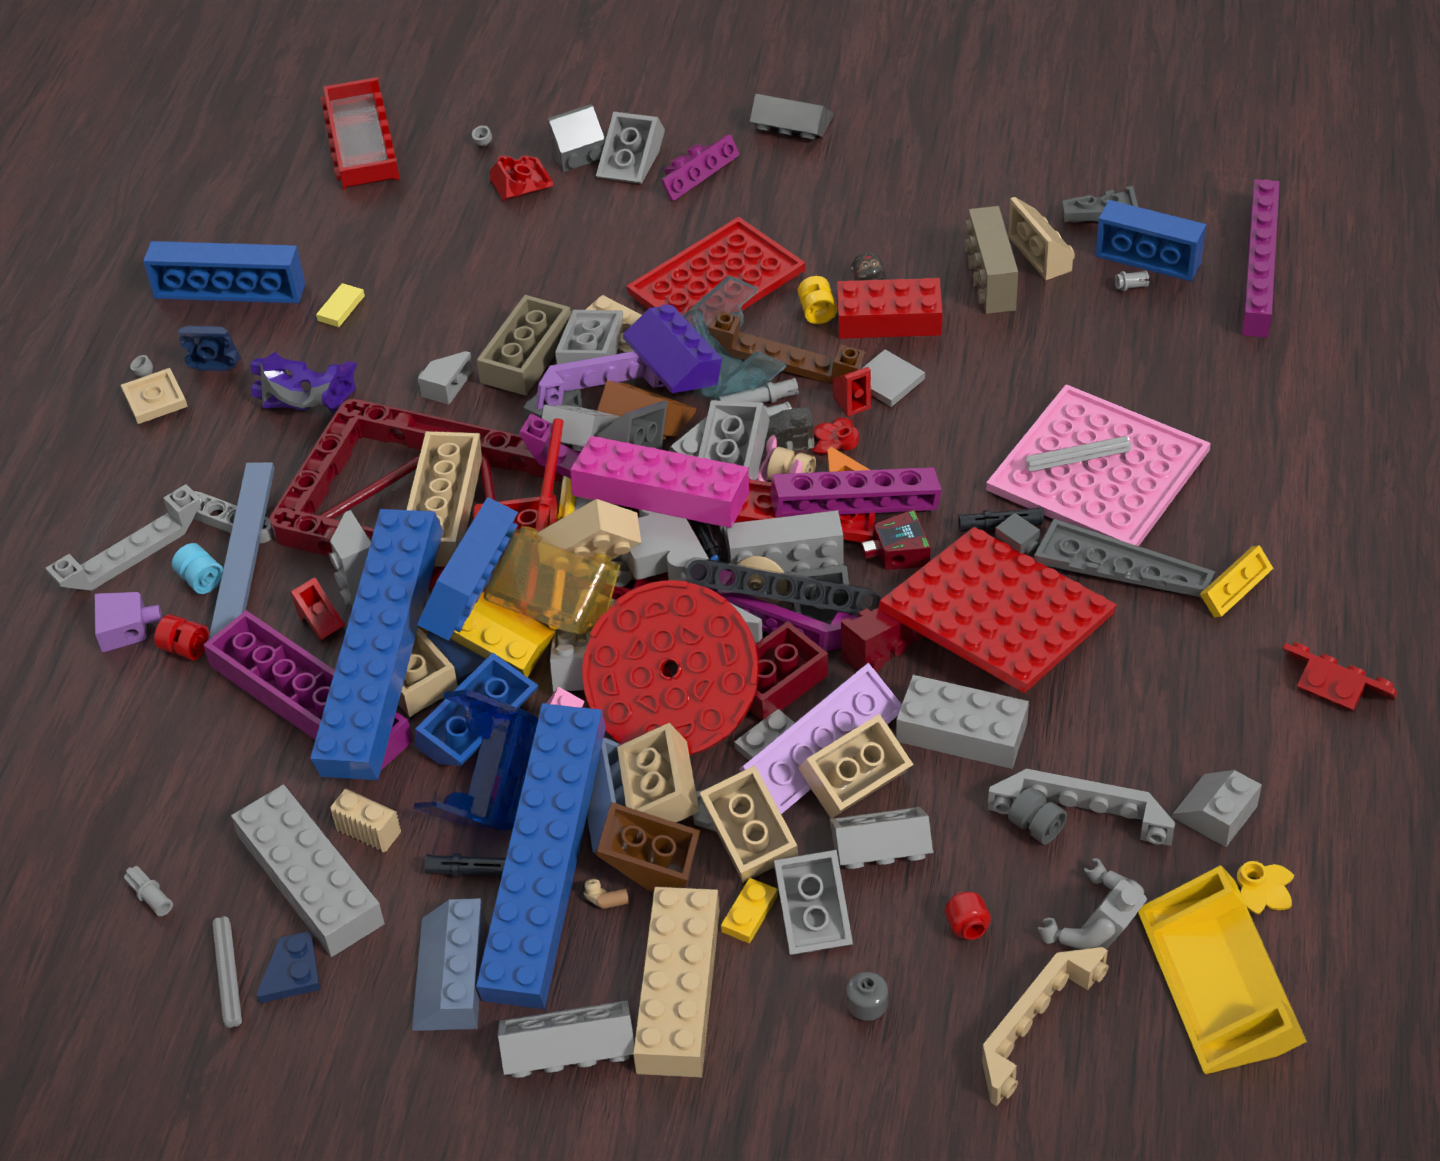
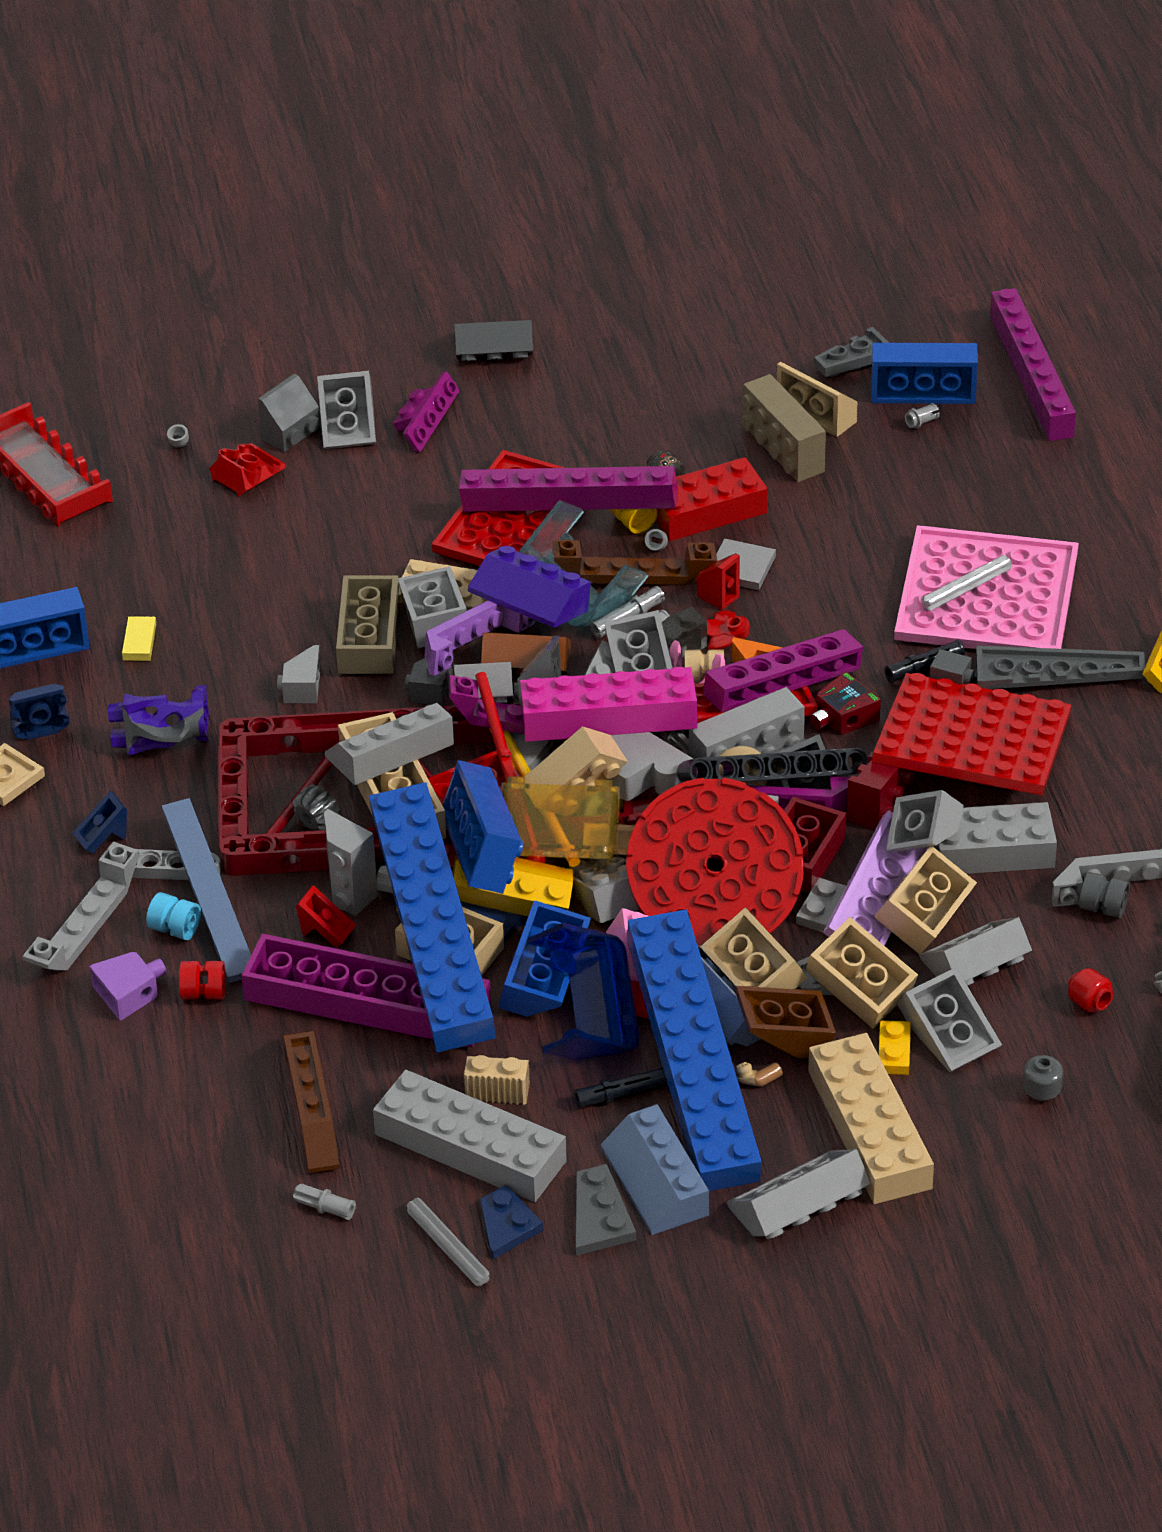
camera: 25 degrees left, 5 degrees down
(178, 805) = (311, 1101): none -> reddish brown slope
(196, 462) = (106, 818): none -> dark blue slope
(371, 499) = (311, 805): none -> dark grey gear
(379, 989) = (600, 1212): none -> dark grey wing
(450, 464) = (393, 744): none -> light grey slope
(762, 266) = (583, 487): none -> magenta brick
(820, 339) = (658, 534): none -> light grey hinge
(887, 687) = (923, 820): none -> light grey slope

